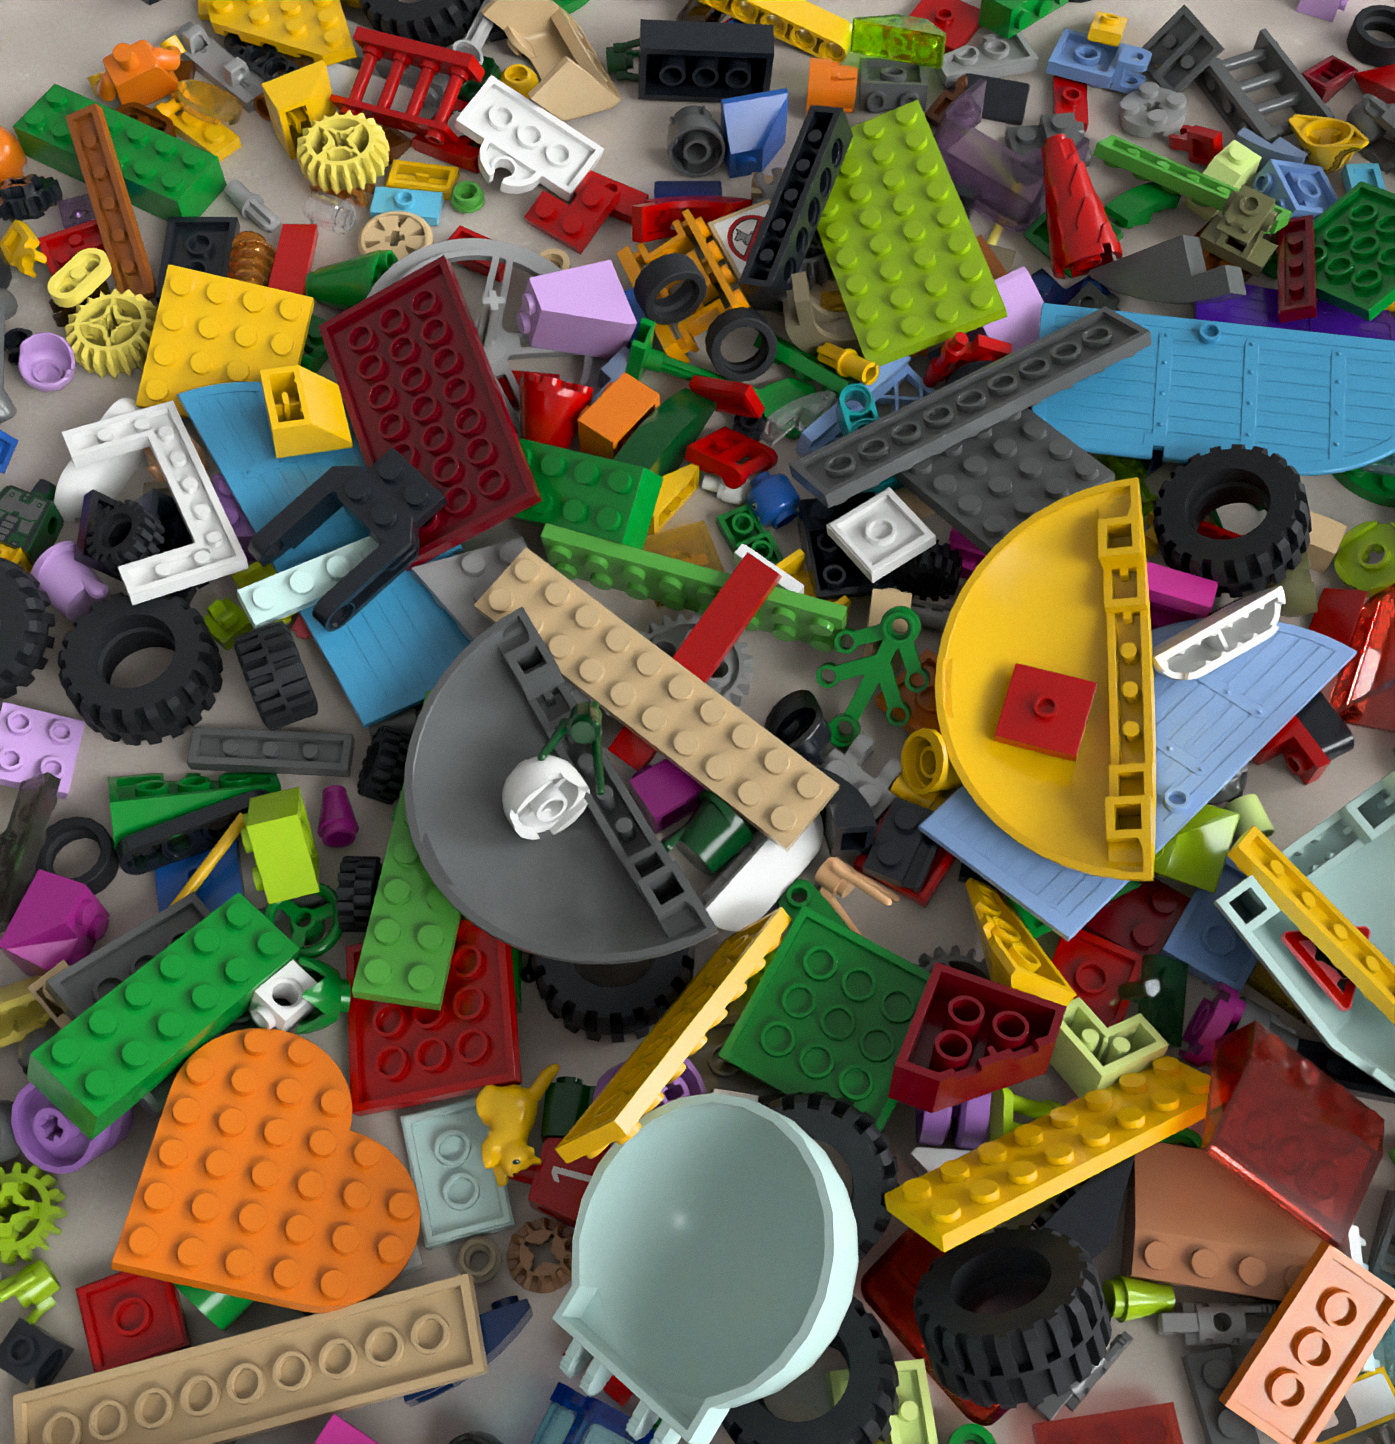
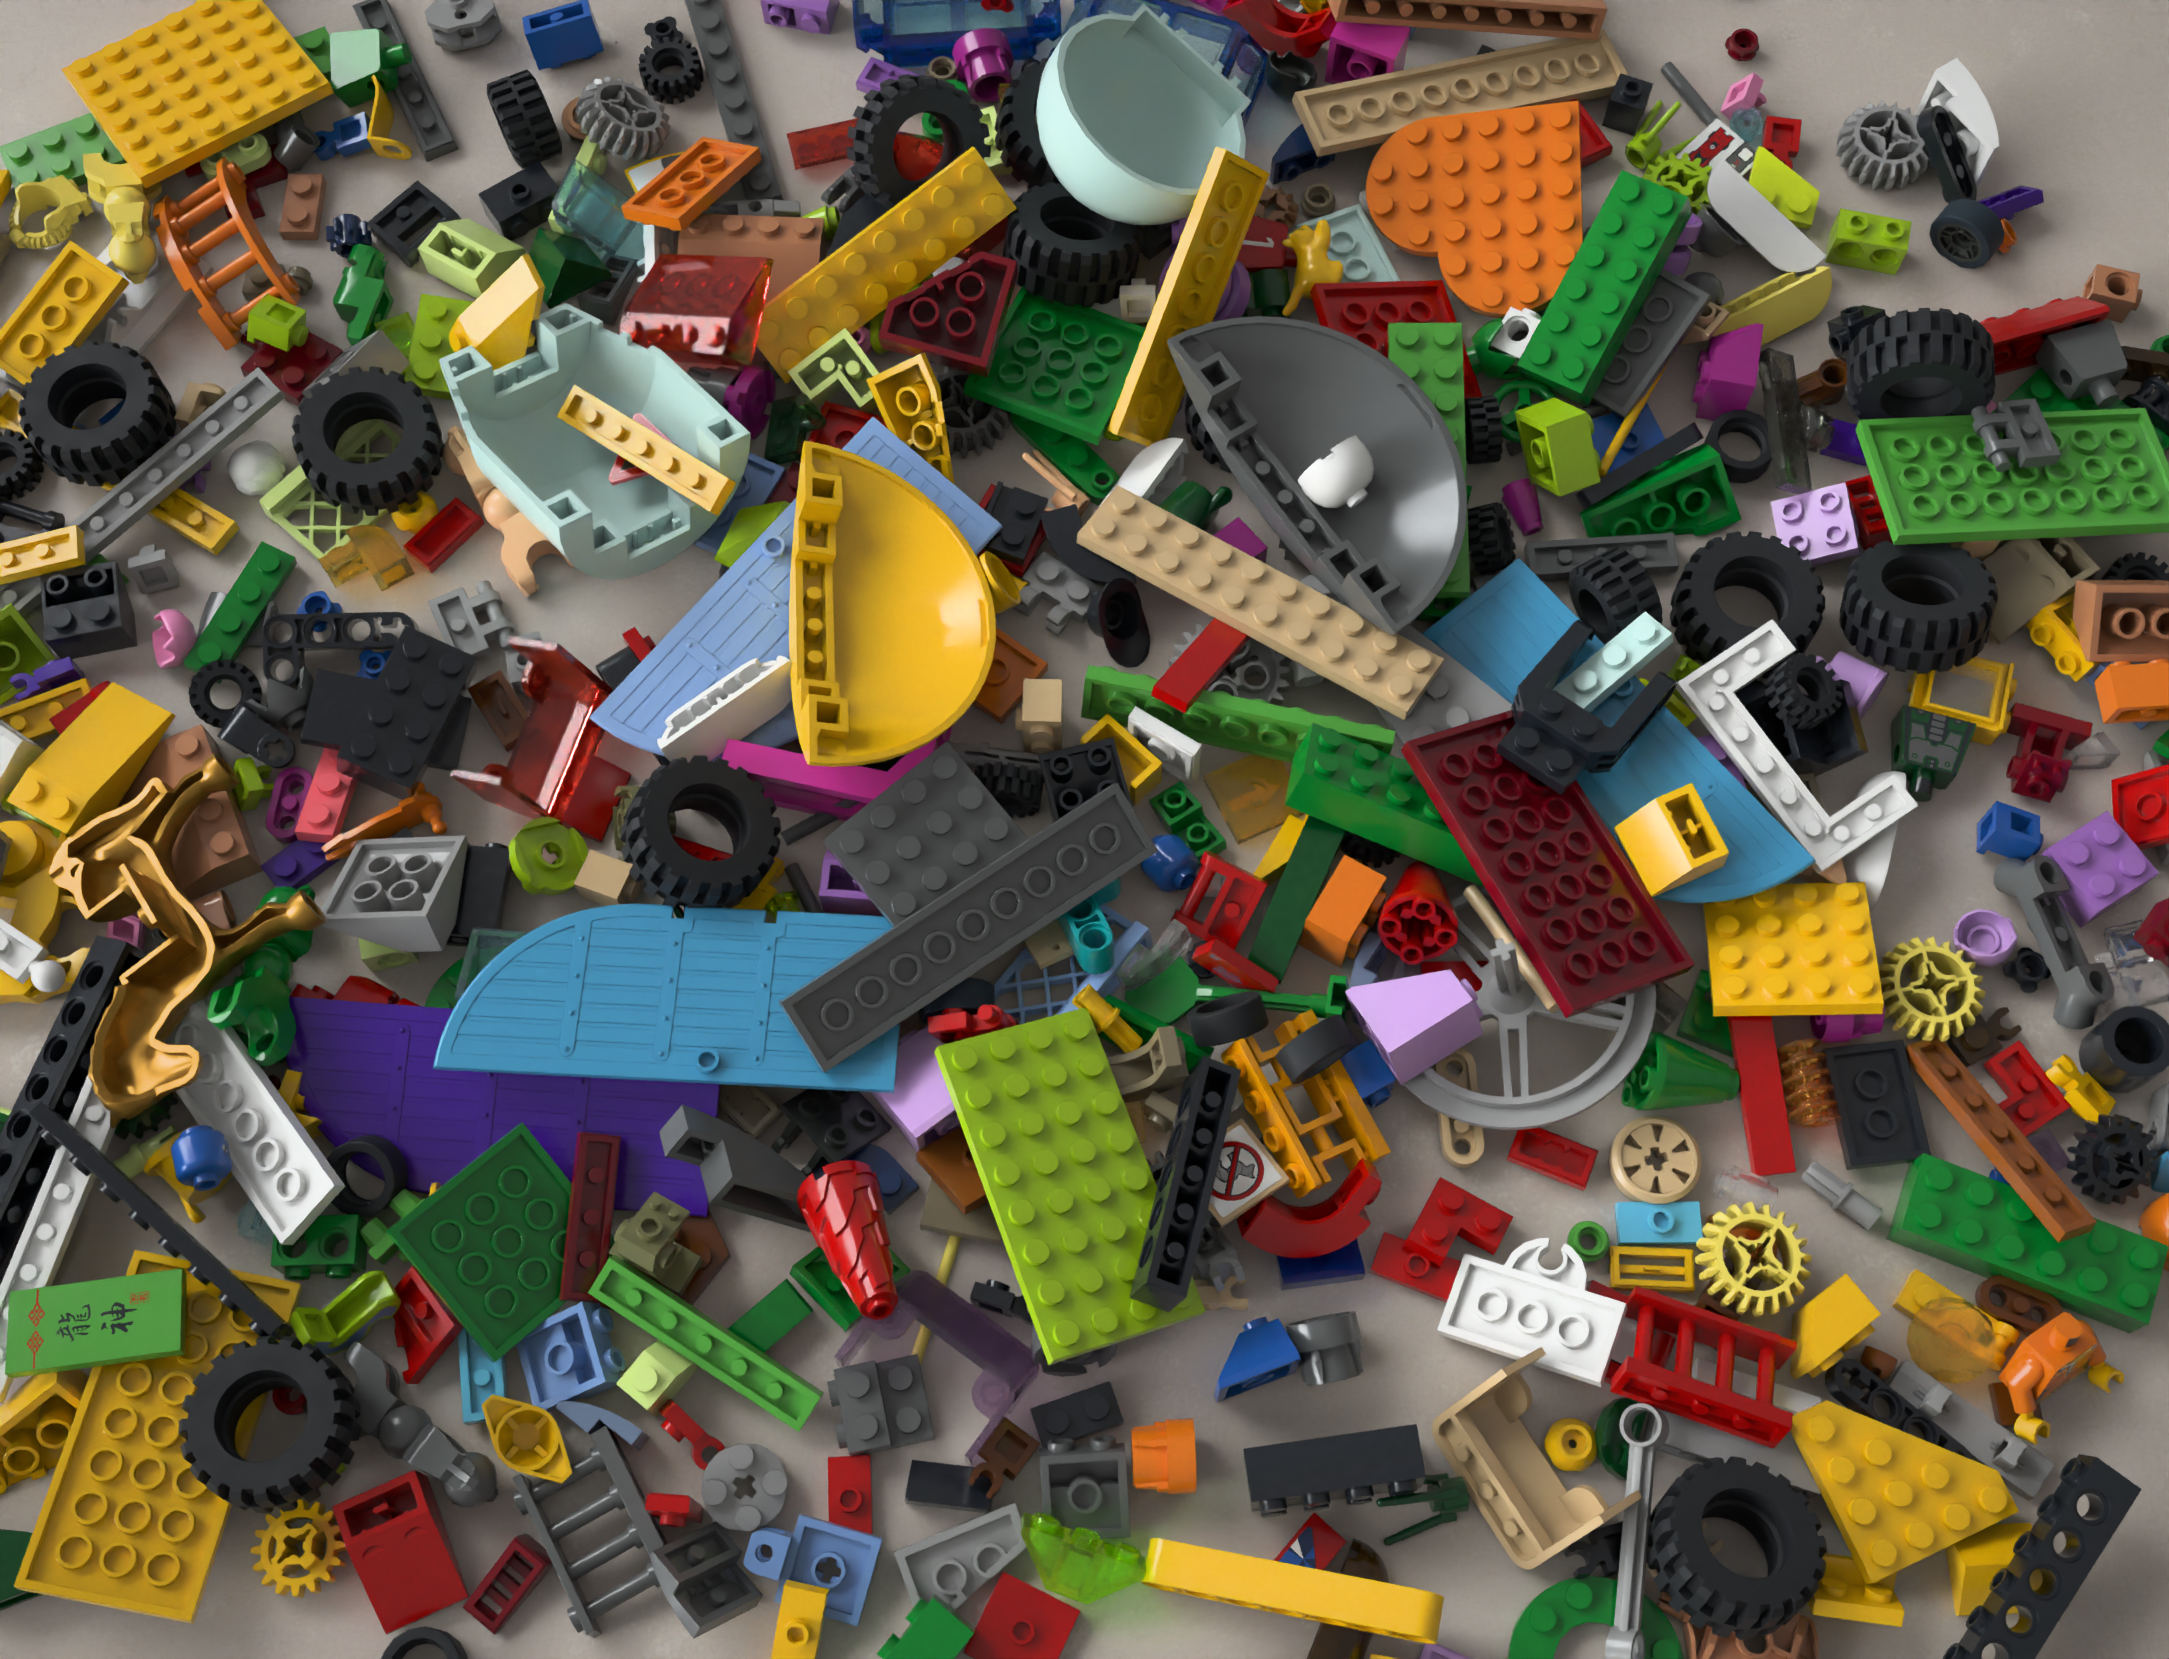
camera: 175 degrees right, 5 degrees up
(79, 277) = (1991, 1042): light yellow plate -> none
(583, 727) = (1312, 534): dark green plant -> none
(876, 670) = (1055, 661): green plant -> none
(881, 534) = (1052, 782): white plate -> none
(1045, 712) = (892, 607): red plate -> none
(1207, 87) = (674, 1509): none -> red plate
(1251, 814) = (695, 584): yellowish green beam -> none

